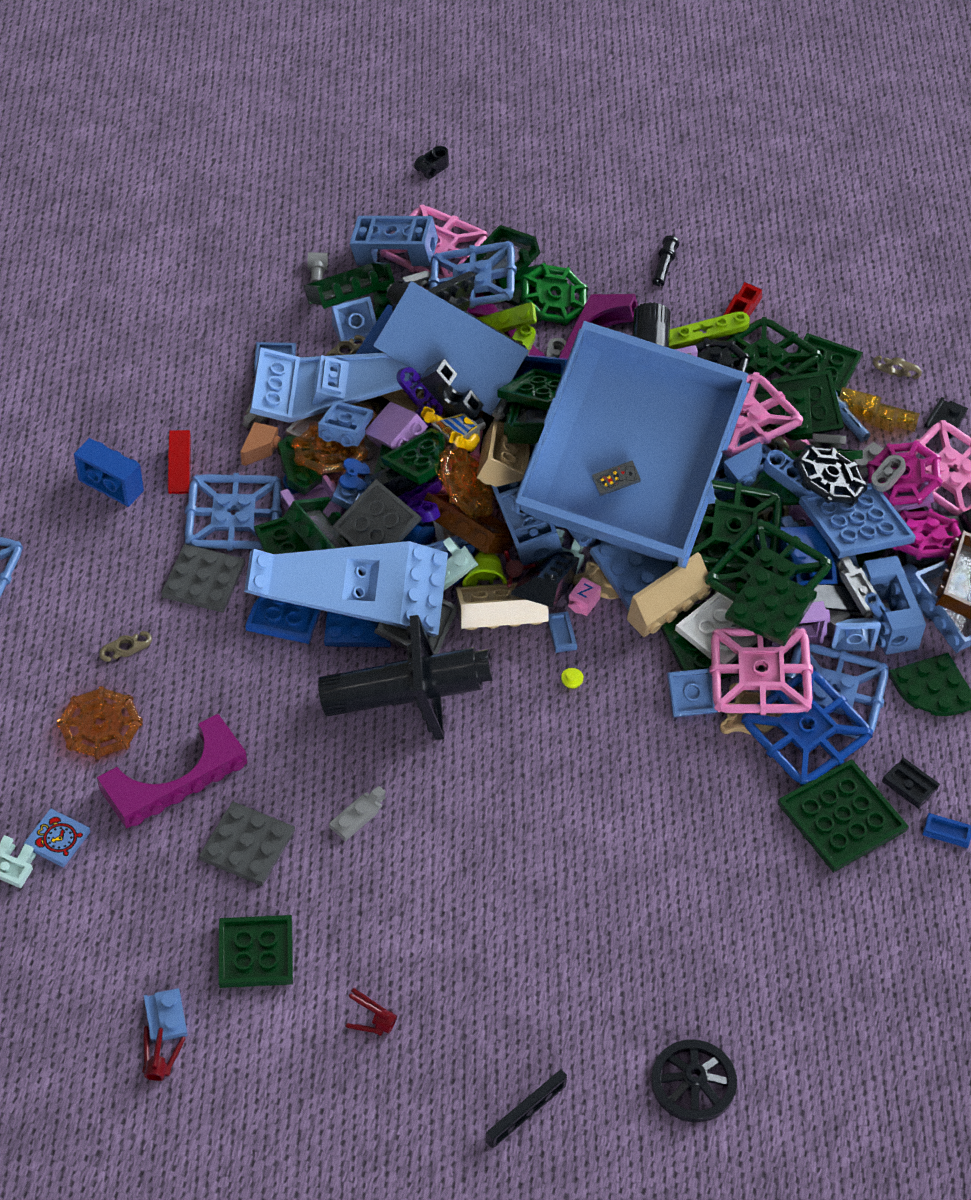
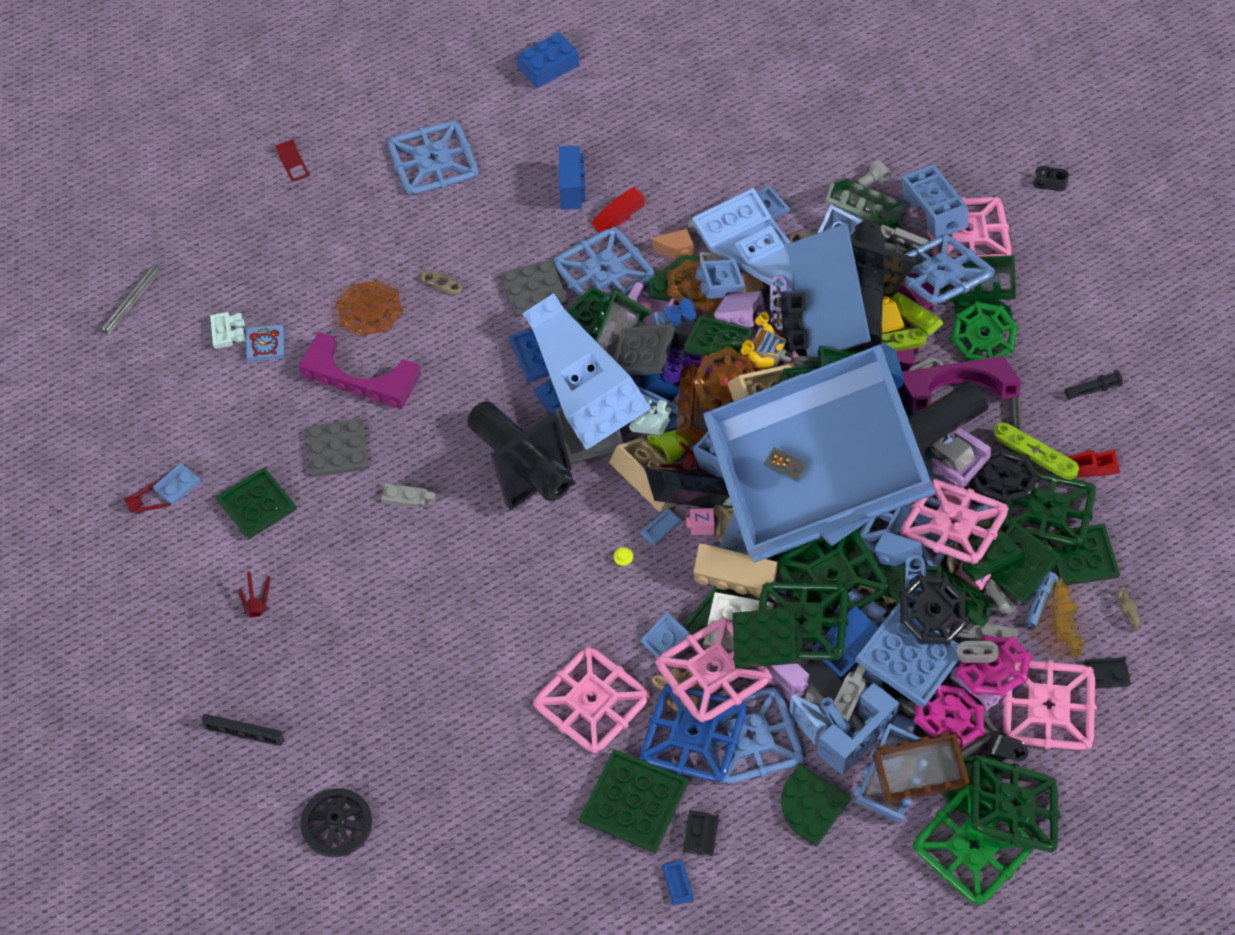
camera: 60 degrees right, 5 degrees up
(702, 800) = (591, 711): none -> bright pink plate

